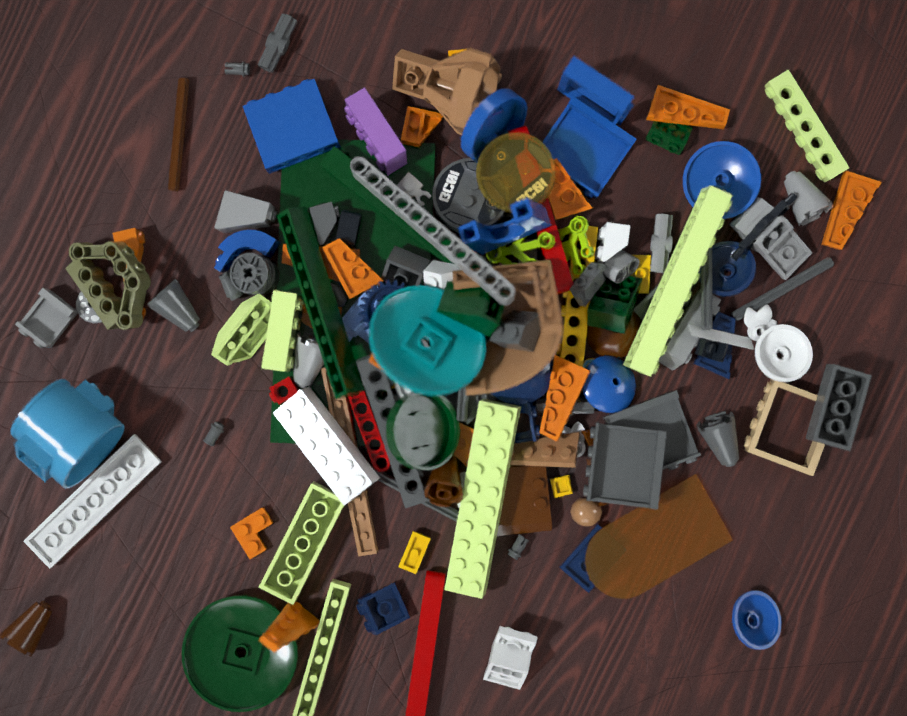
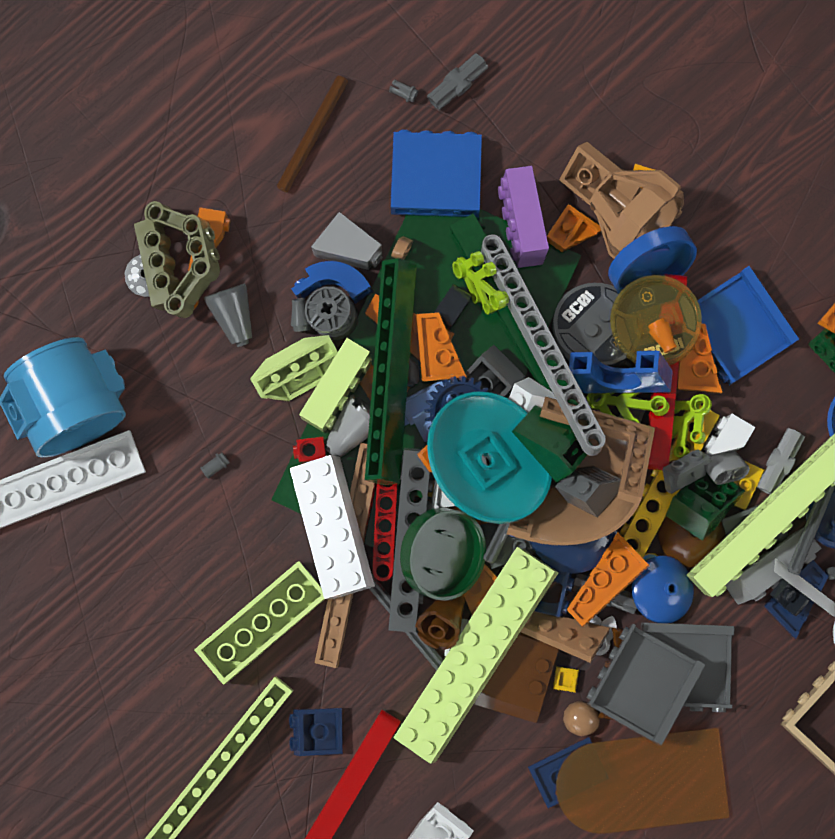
camera: 25 degrees right, 5 degrees down
(47, 319) = (89, 269): light grey panel -> none
(219, 672) = (109, 719): dark green dish -> none
(247, 532) = (204, 586): orange plate -> none
(288, 198) = (402, 247): none -> medium nougat beam
(288, 626) = (210, 704): orange wing -> none
(325, 221) = (430, 288): dark grey slope -> none
(362, 204) = (463, 269): none -> lime plant
(412, 188) = (539, 291): white plate -> none
(414, 552) = (376, 684): yellow plate -> none
(518, 547) = (491, 726): dark grey pin -> none
(526, 182) = (662, 334): none -> orange cone
(595, 91) = (775, 270): blue window -> none
(721, 437) = (762, 698): dark grey cone -> none

